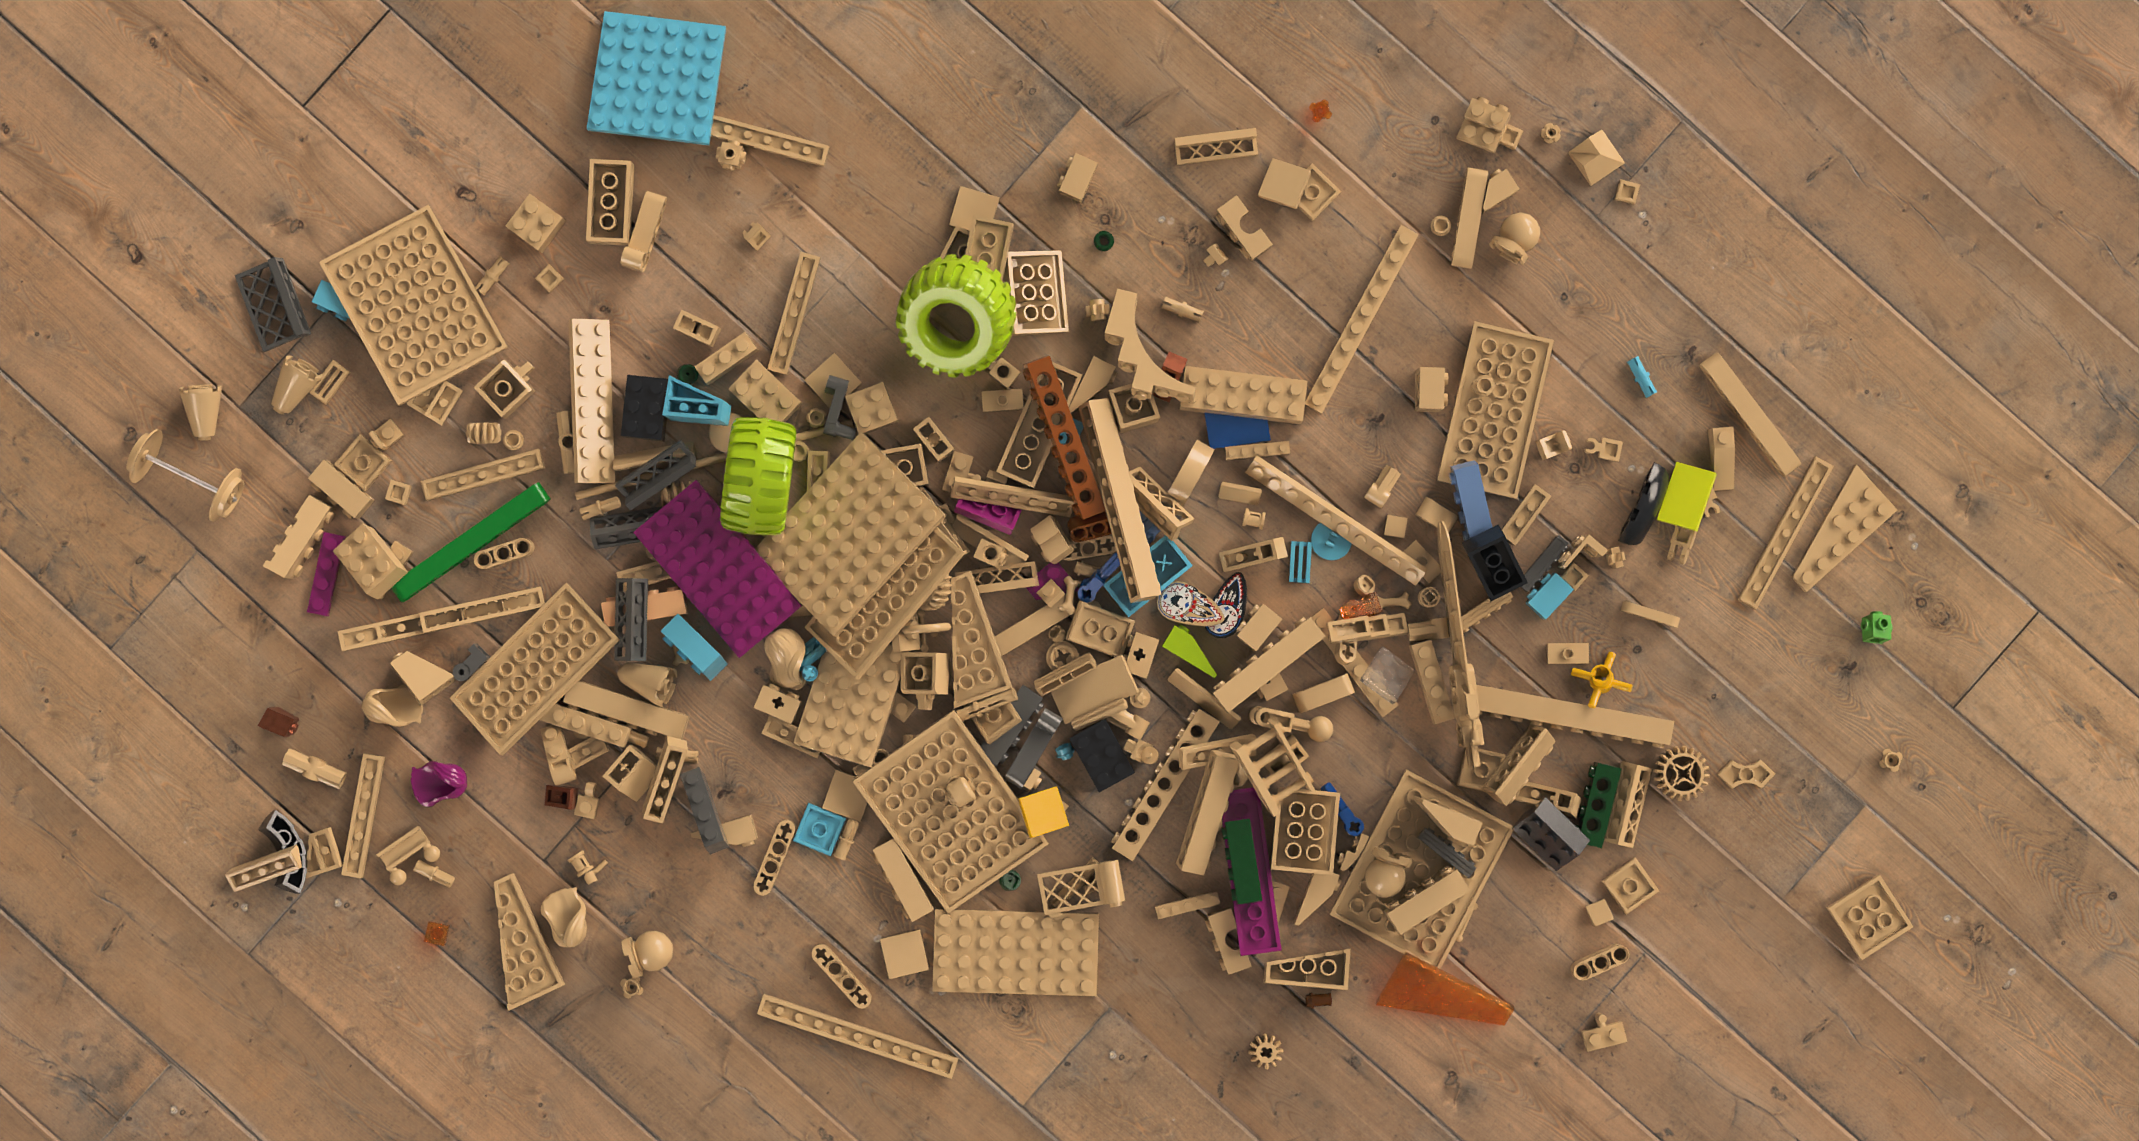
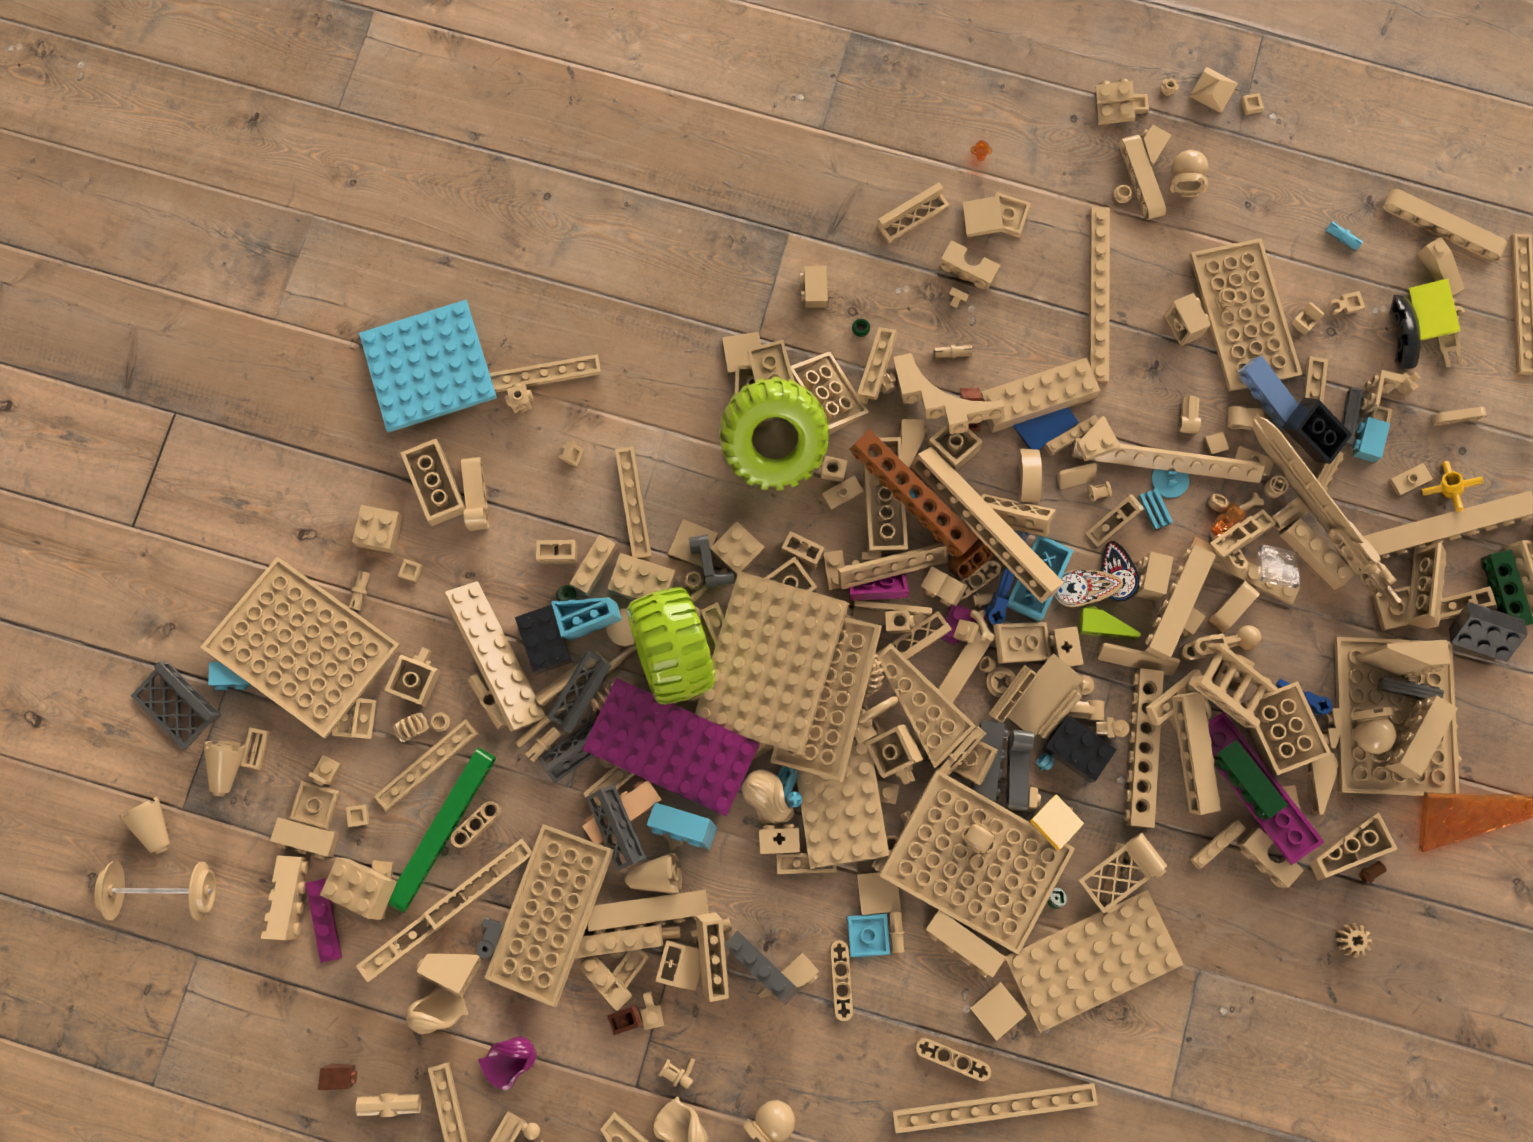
camera: 30 degrees left, 10 degrees down
(1097, 289) = (877, 364): none -> tan fence
(1274, 469) = (1098, 441): none -> tan wing

